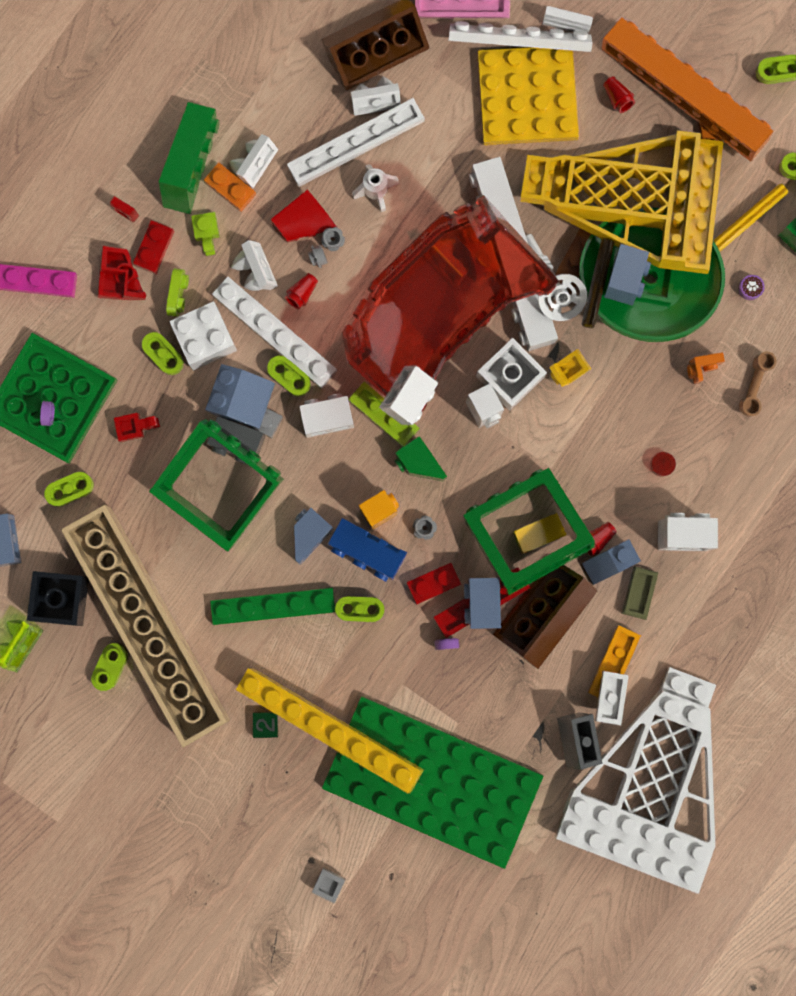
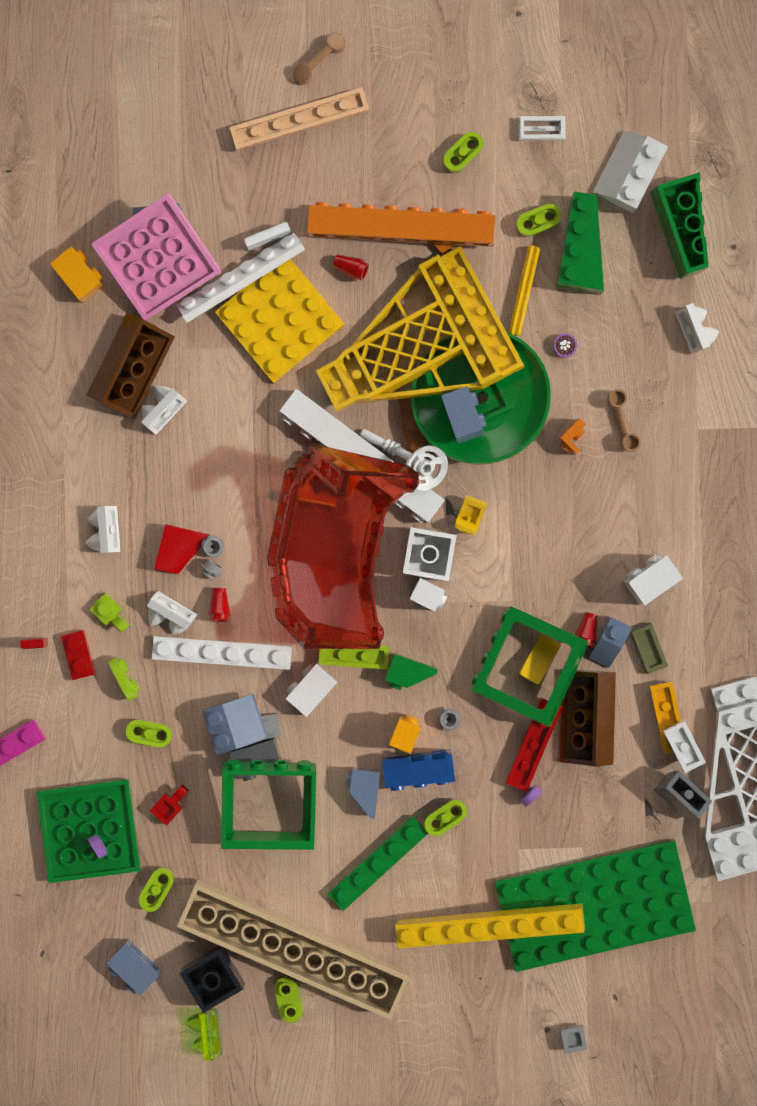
camera: 35 degrees left, 5 degrees up
(118, 277) = (68, 698): red slope -> none
(188, 157) = (52, 565): green wedge -> none
(203, 336) = (170, 697): white brick -> none
(229, 187) = (101, 564): orange plate -> none
(265, 725) = (438, 956): dark green tile -> none
(289, 376) = (259, 679): lime plate -> none
(355, 142) = (173, 456): white plate -> none
(377, 190) = (220, 485): white brick -> none
(409, 395) = (366, 636): white brick -> none
(433, 583) = (487, 756): red plate -> none
(483, 603) = (536, 746): sand blue brick -> none
(597, 283) = (445, 437): dark brown axle -> none
(662, 464) = (595, 535): clear red tile -> none

